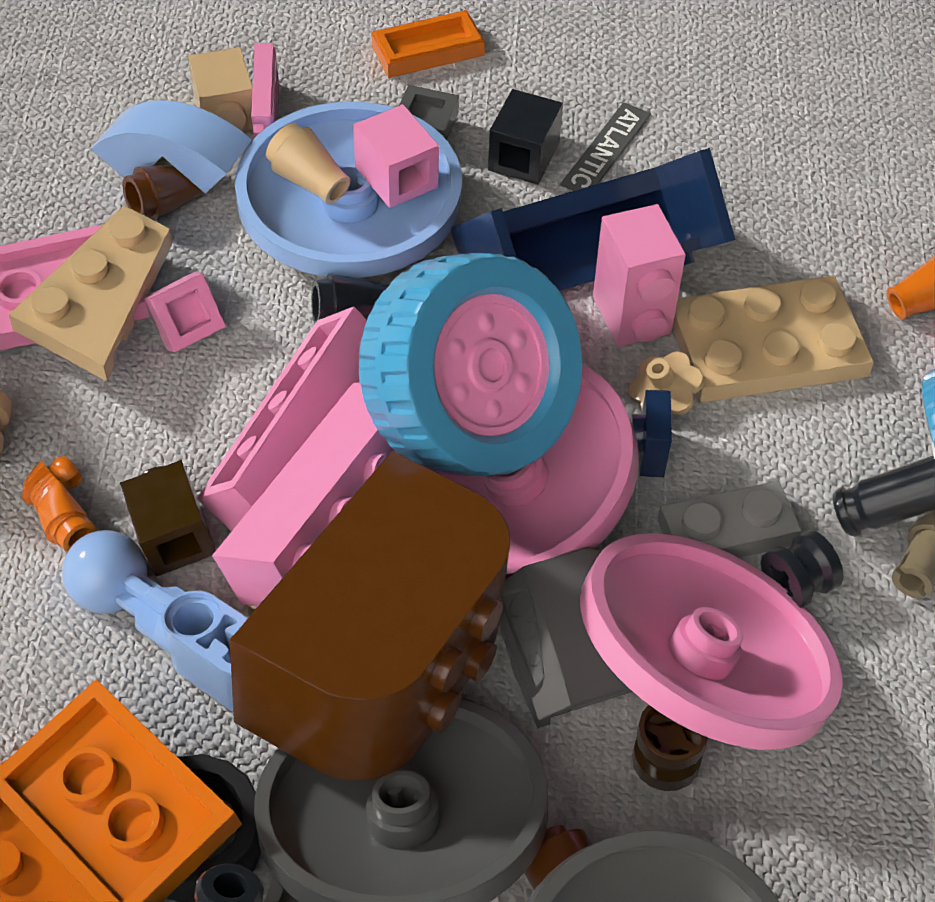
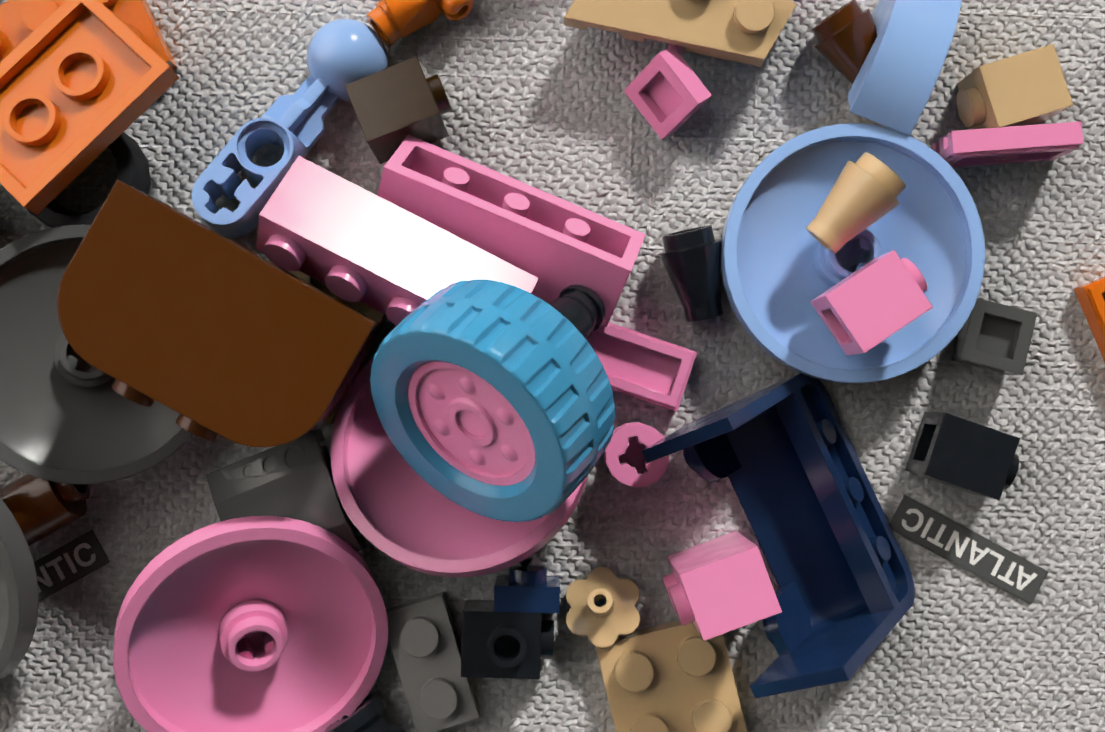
camera: 95 degrees right, 35 degrees up
(700, 452) = (503, 642): none -> black brick

